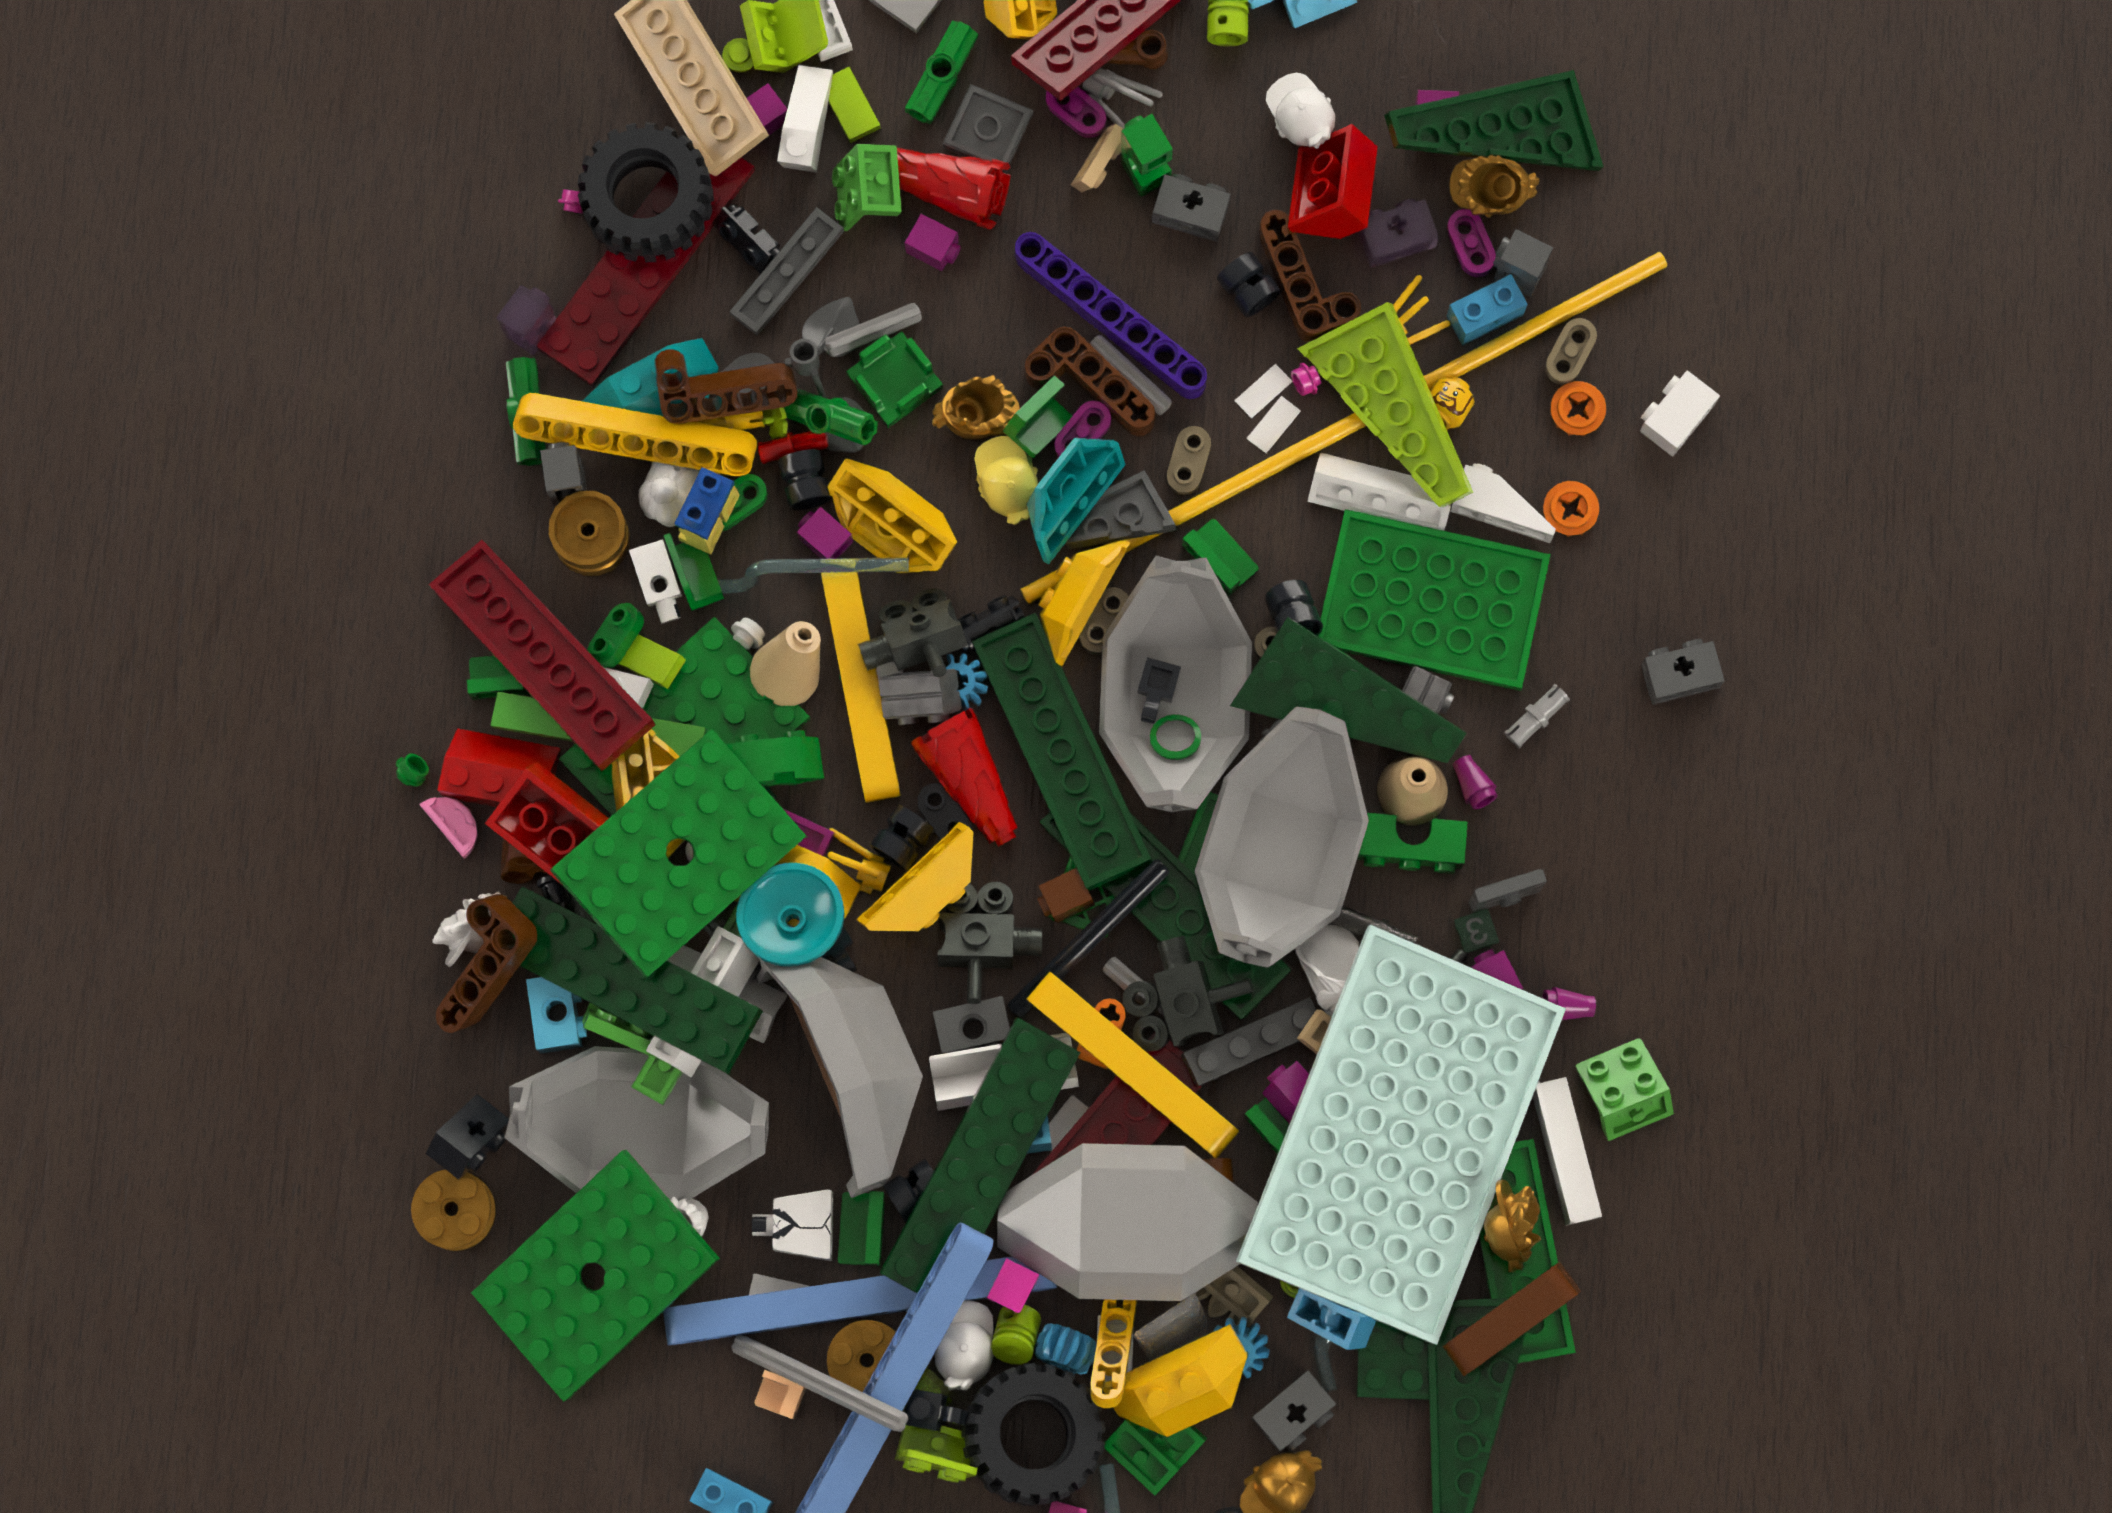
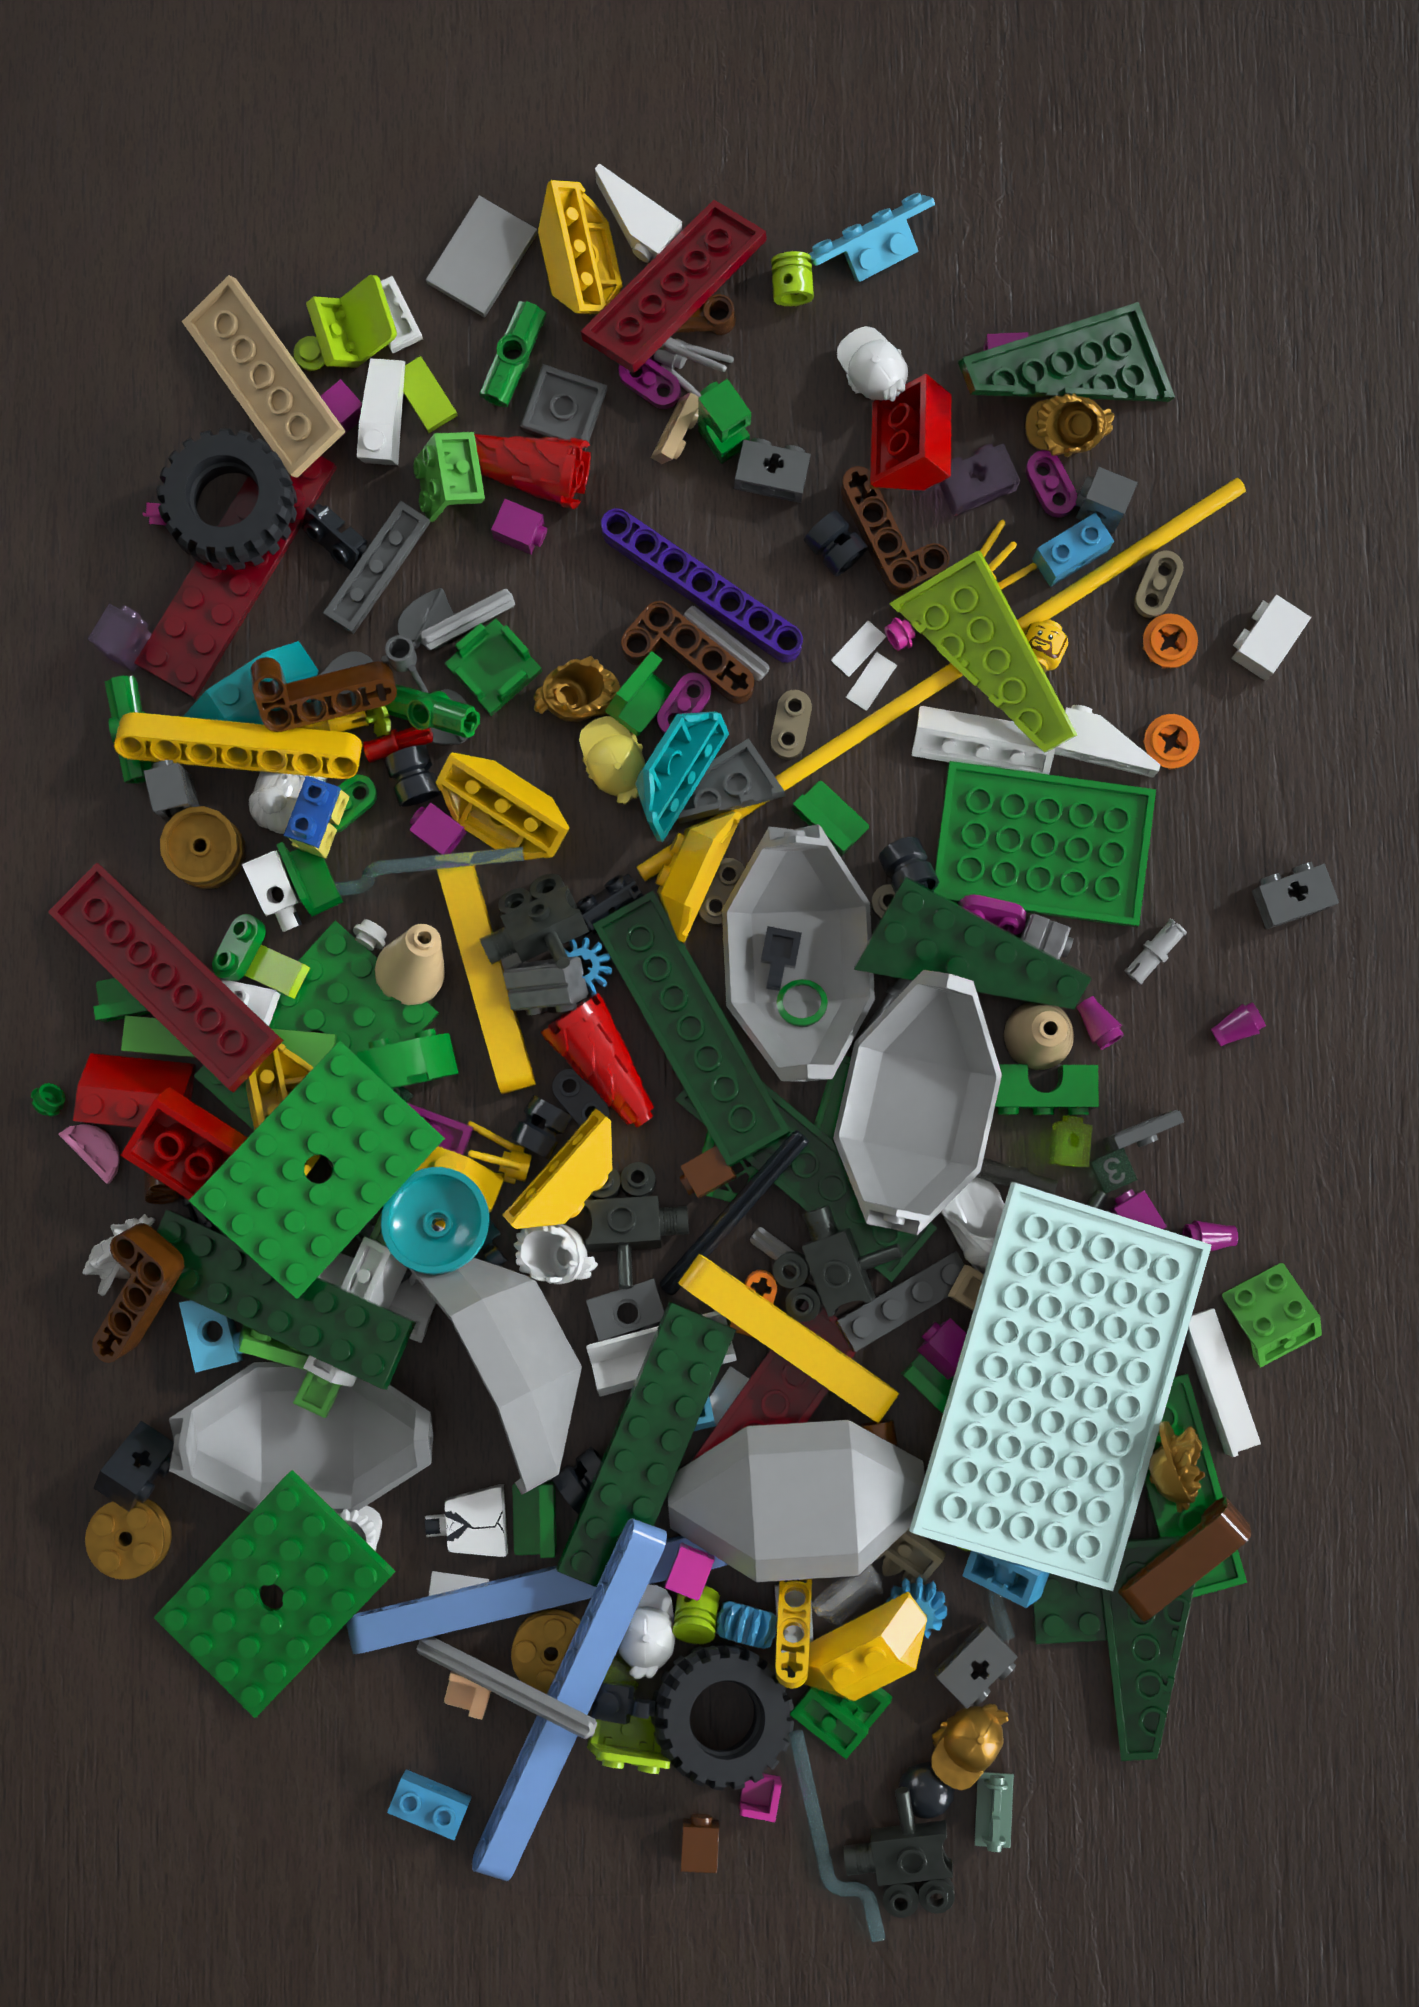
camera: 10 degrees left, 5 degrees up
(903, 962) = (553, 1254): none -> white hair
(1384, 663) = (999, 912): none -> magenta plate
(1434, 899) = (1070, 1142): none -> clear neon green brick
(1615, 796) = (1239, 1024): none -> magenta cone

